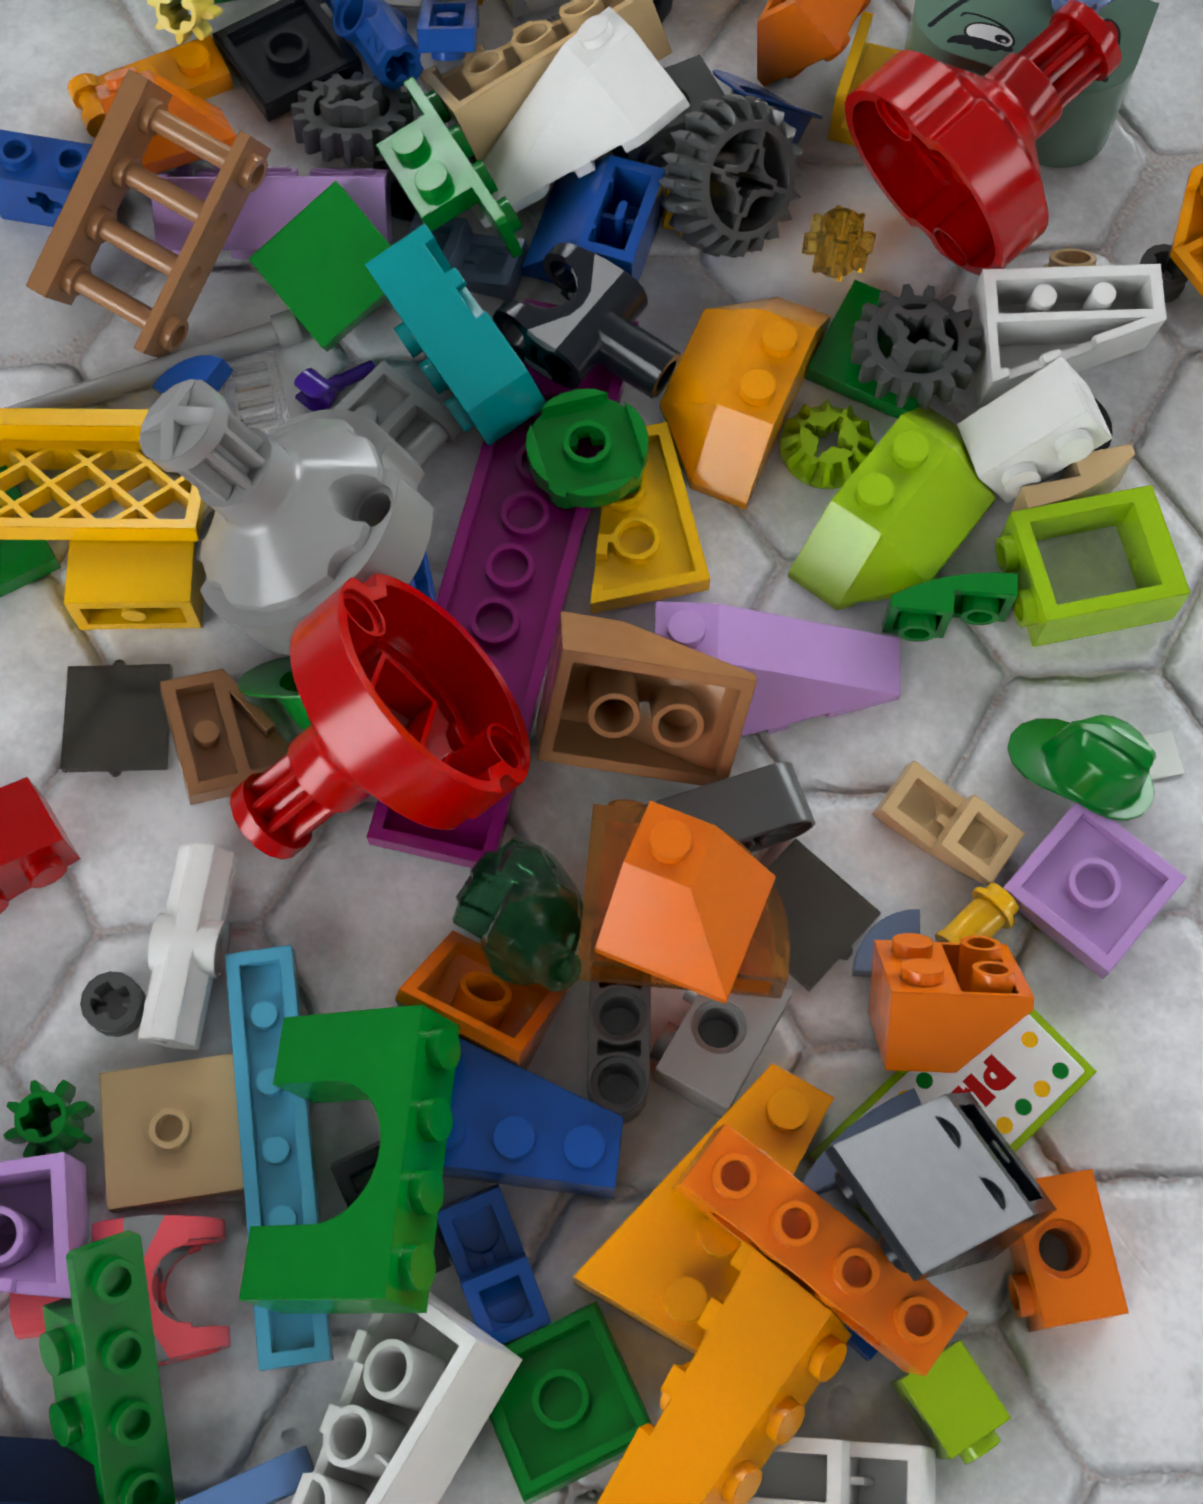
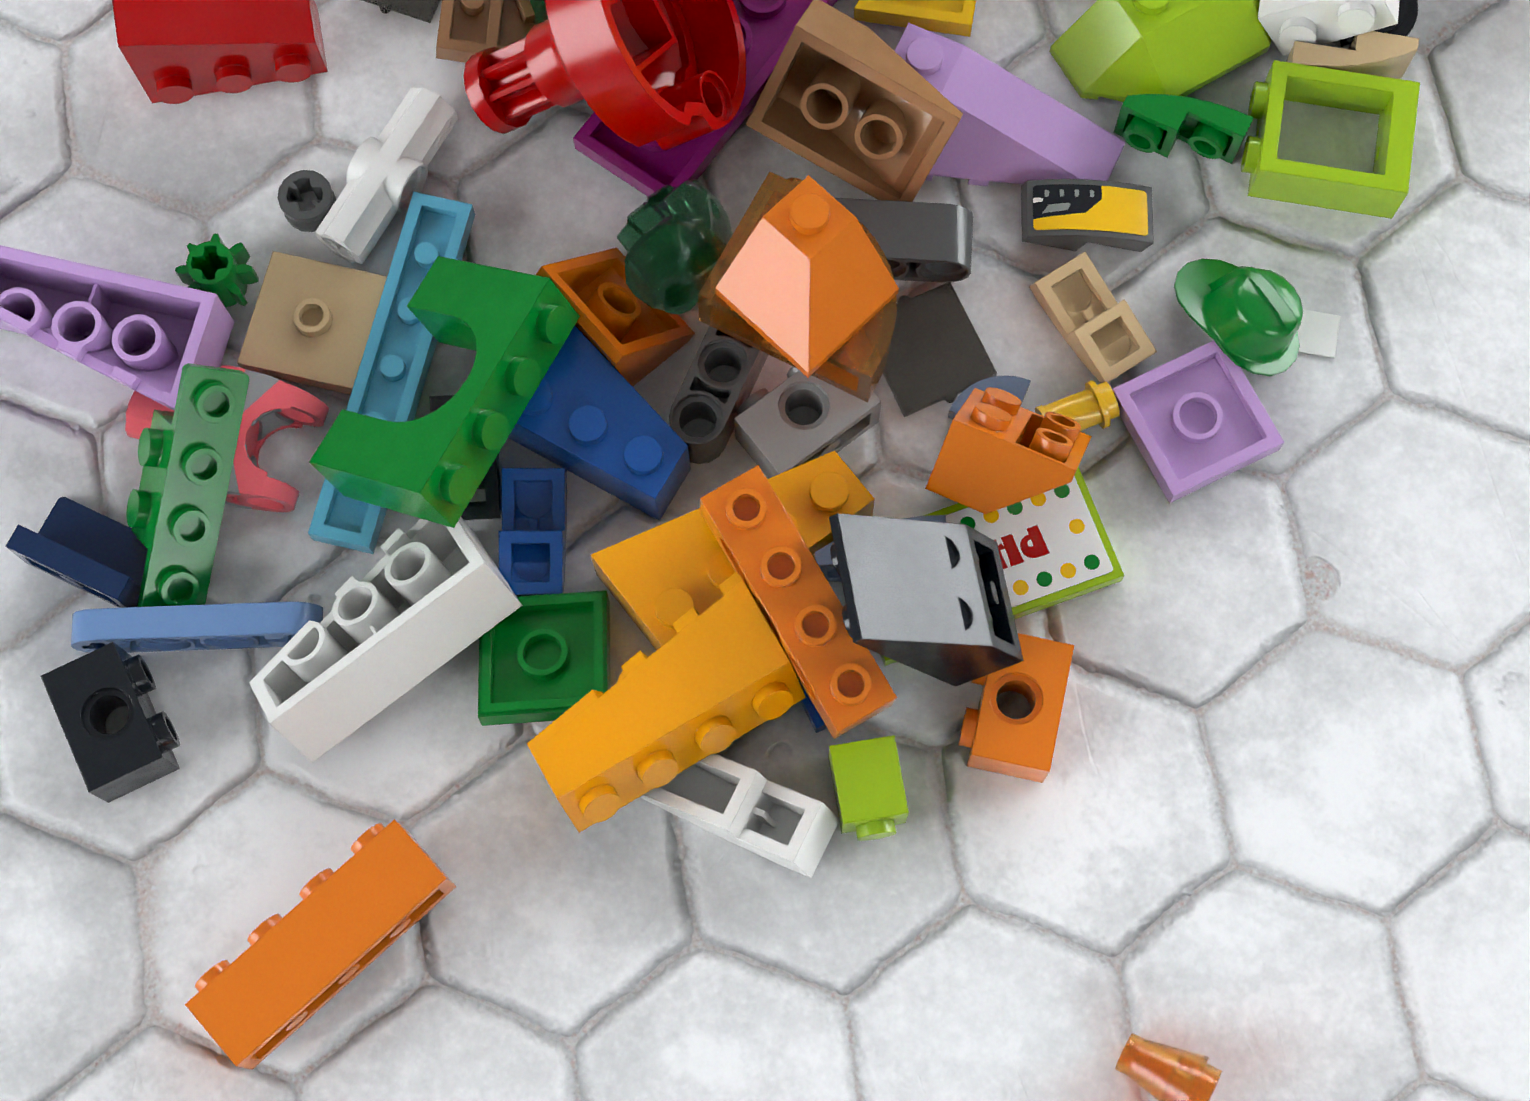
camera: 25 degrees right, 5 degrees up
(897, 720) = (1084, 211): none -> slope

